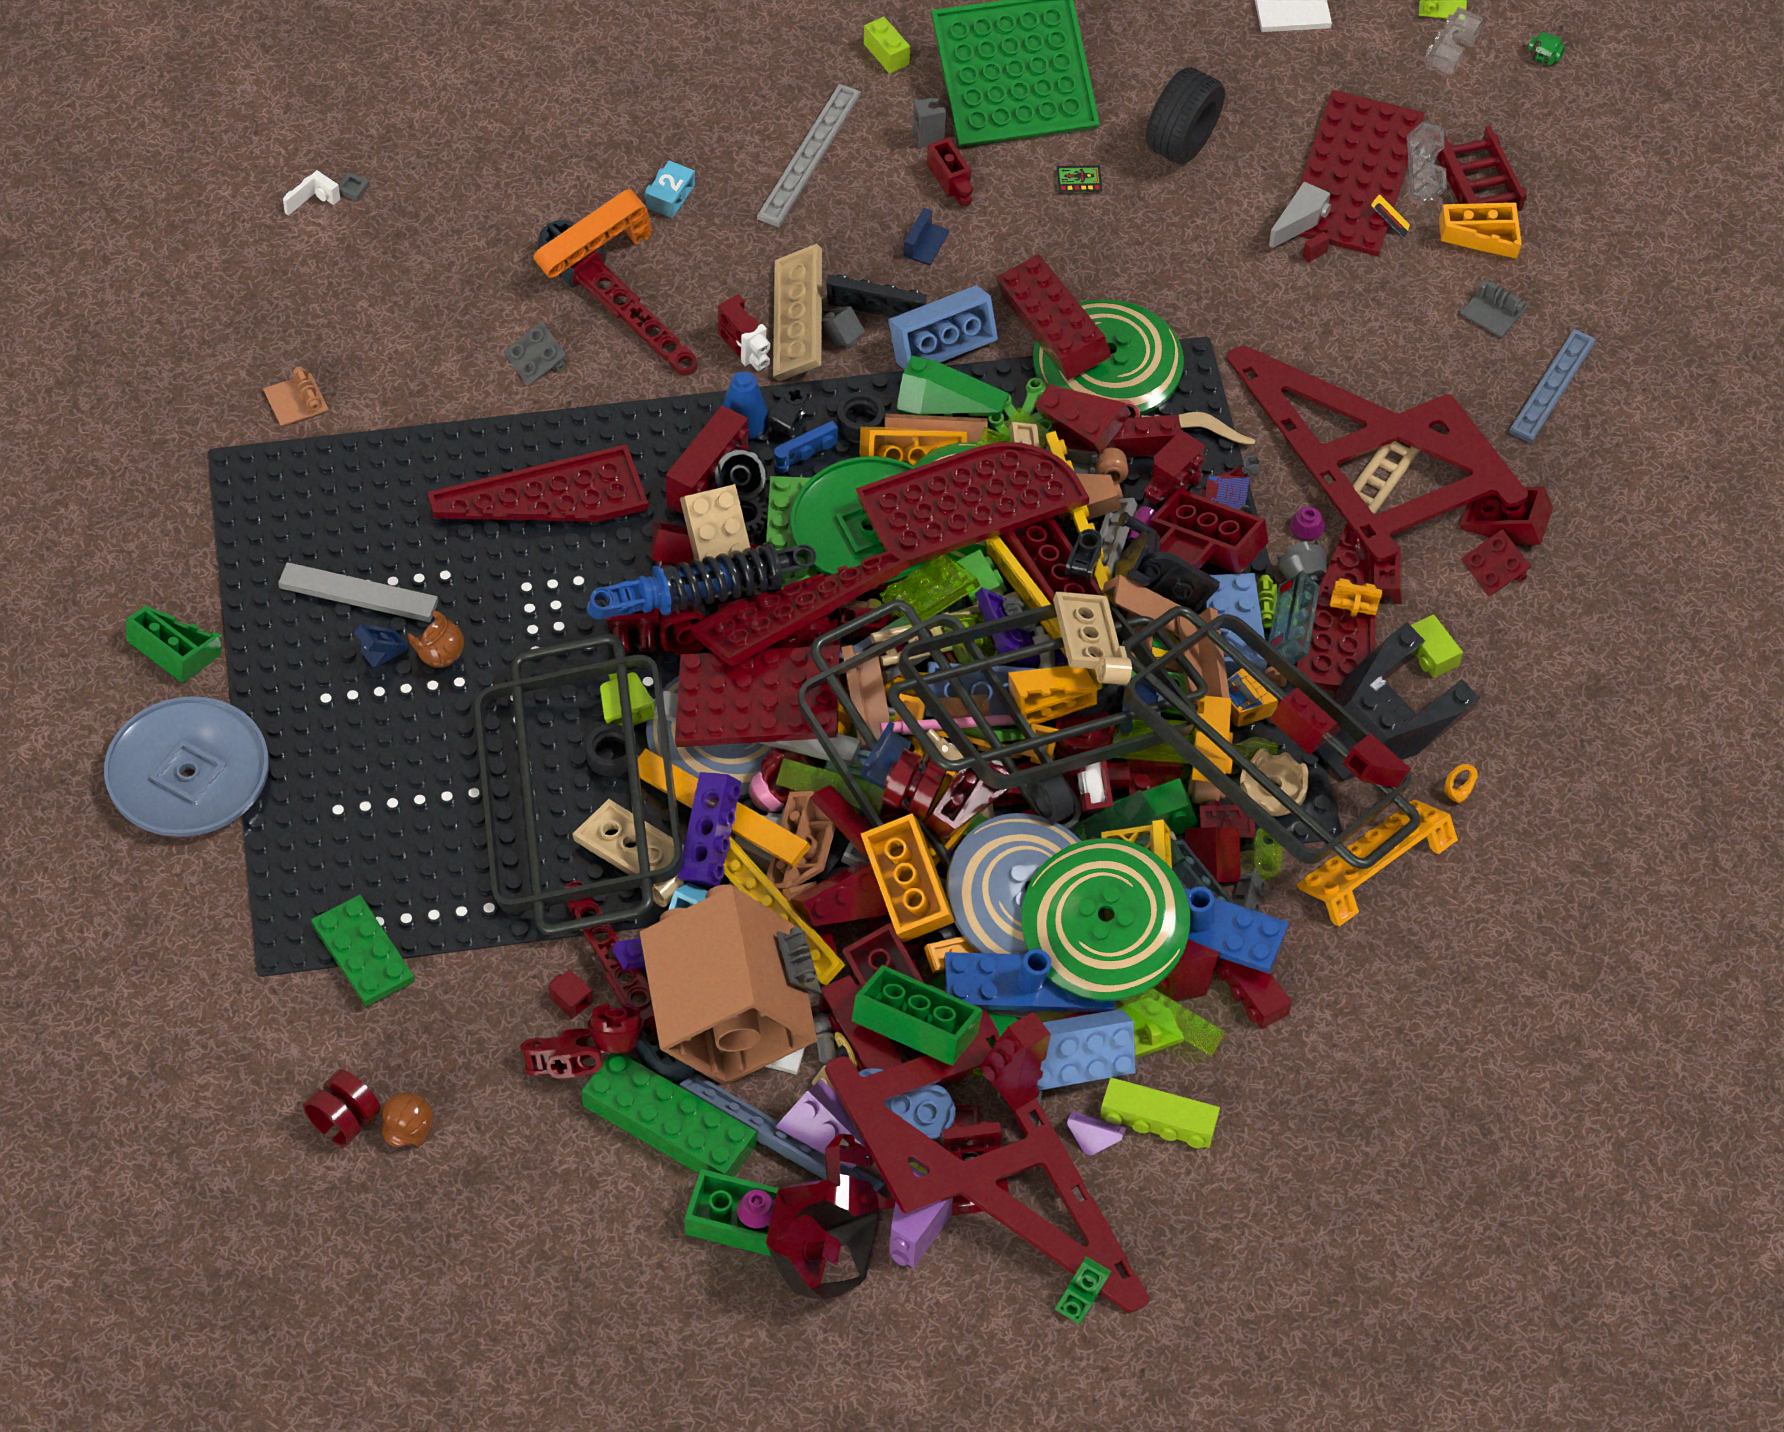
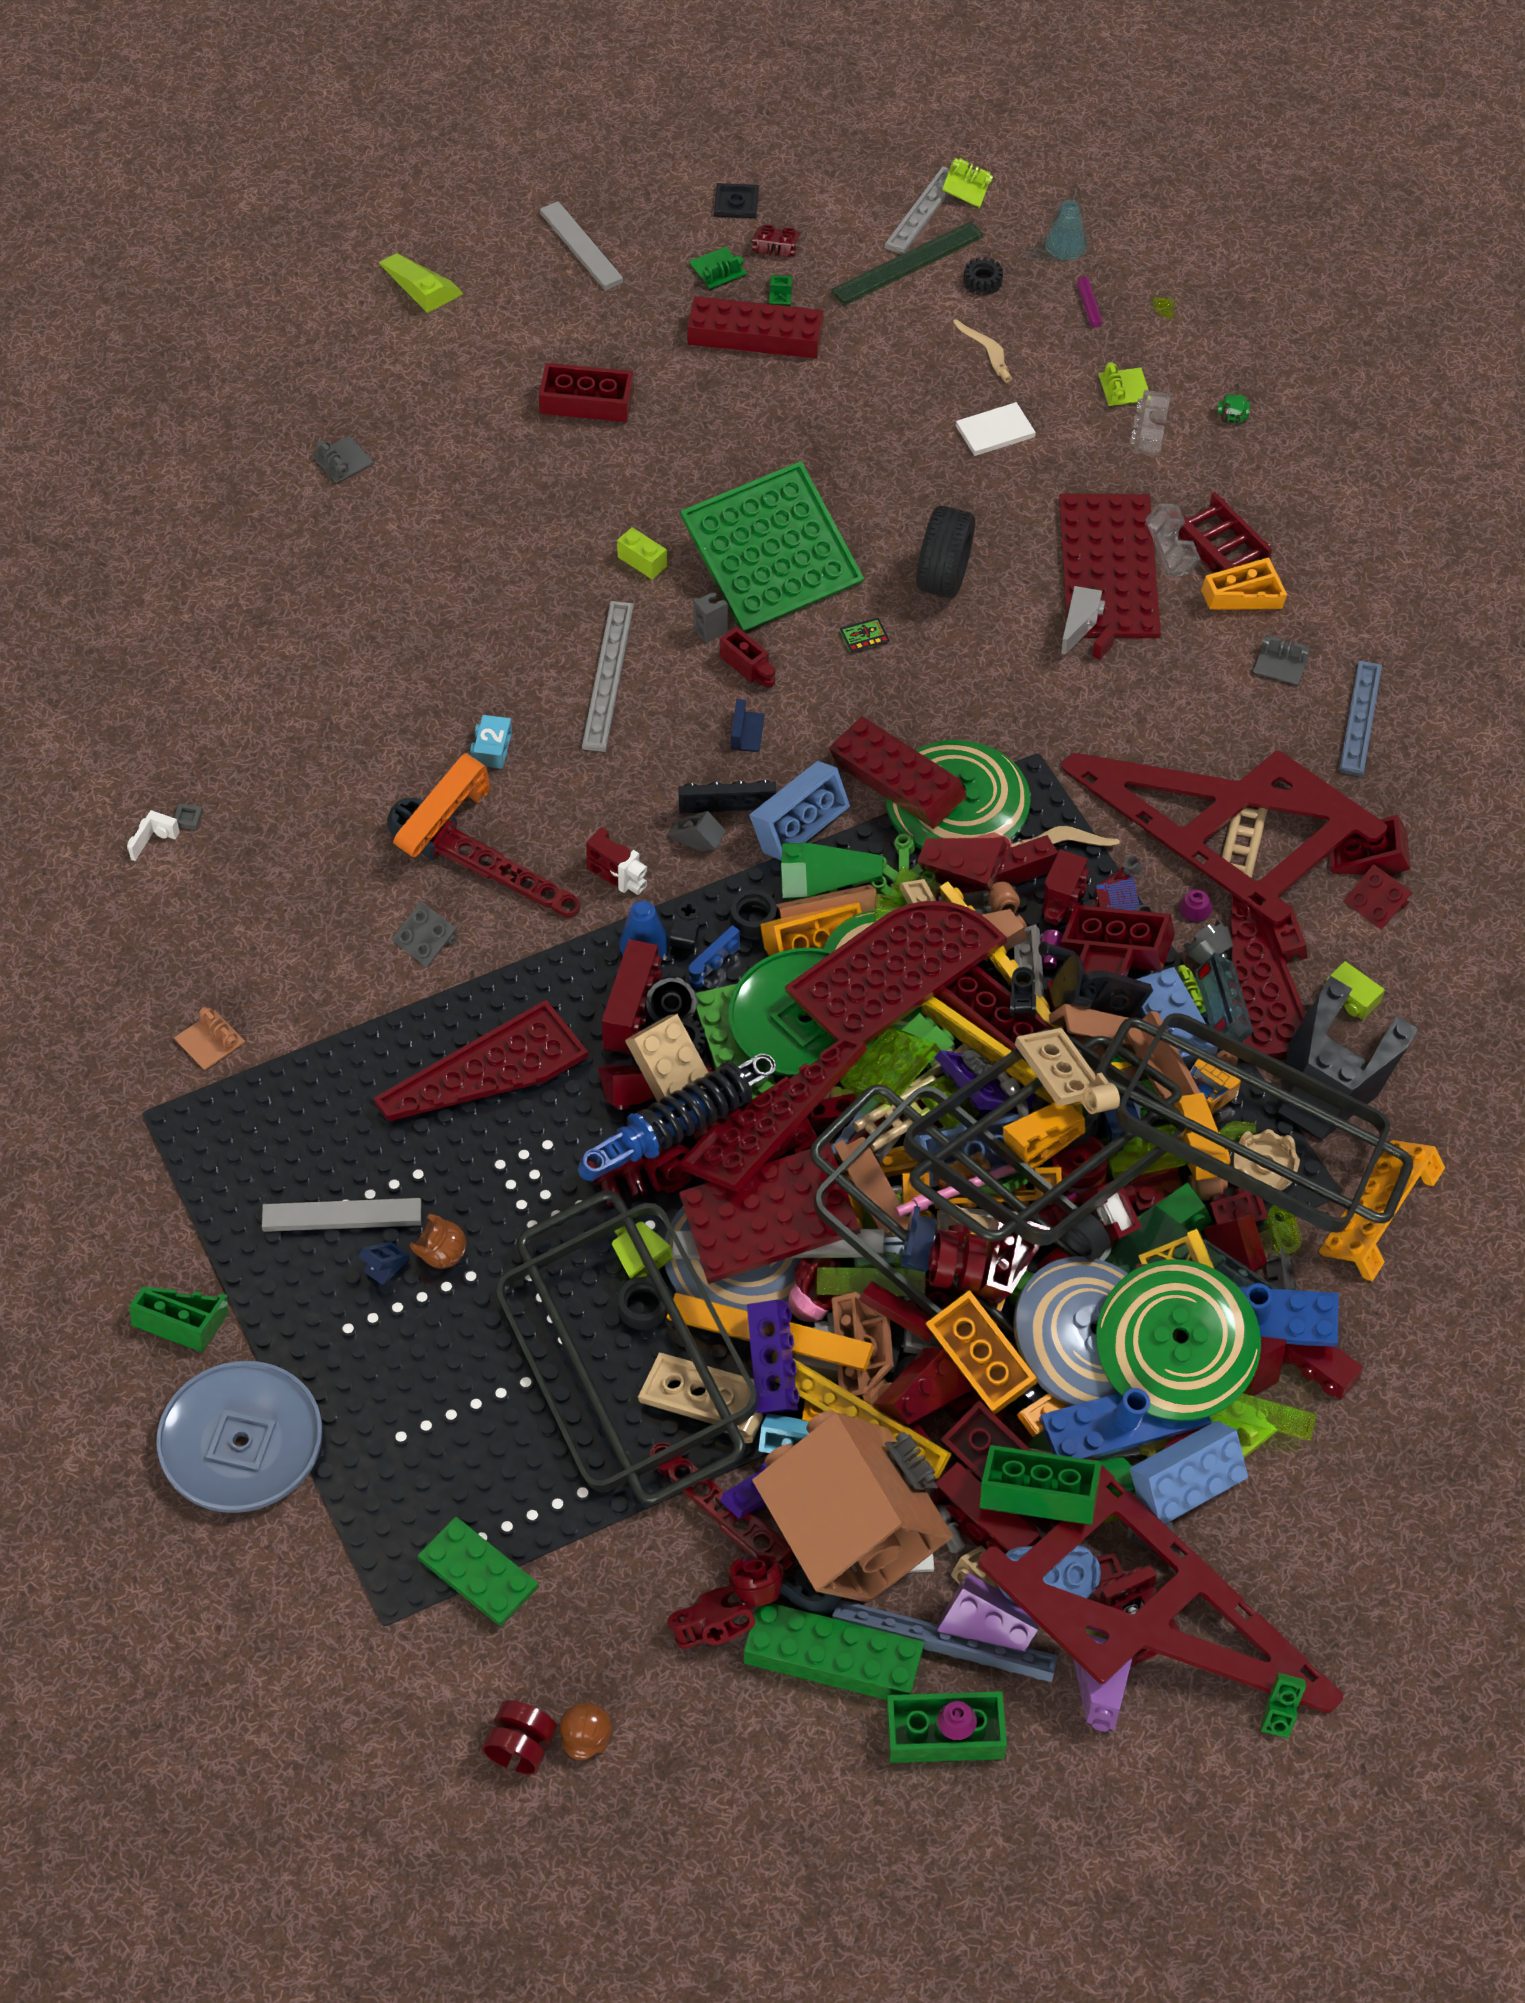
camera: 15 degrees left, 0 degrees up
(570, 993) = (692, 1555): dark red brick -> none
(797, 312) = (657, 829): tan plate -> none
(820, 1217) = (1021, 1708): dark red piece -> none
(844, 1048) = (973, 1535): piece -> none
(1017, 1059) = (1150, 1502): dark red wedge -> none
(1093, 1133) = (1231, 1546): slope -> none
(1159, 1113) = (1284, 1510): lime brick -> none
(1304, 721) = (1283, 1097): dark red slope -> none
(1355, 597) = (1270, 965): light orange hips -> none
(1376, 763) = (1358, 1118): dark red slope -> none
(1391, 215) = (1158, 597): sticker -> none
(1460, 794) = (1430, 1123): light orange piece -> none

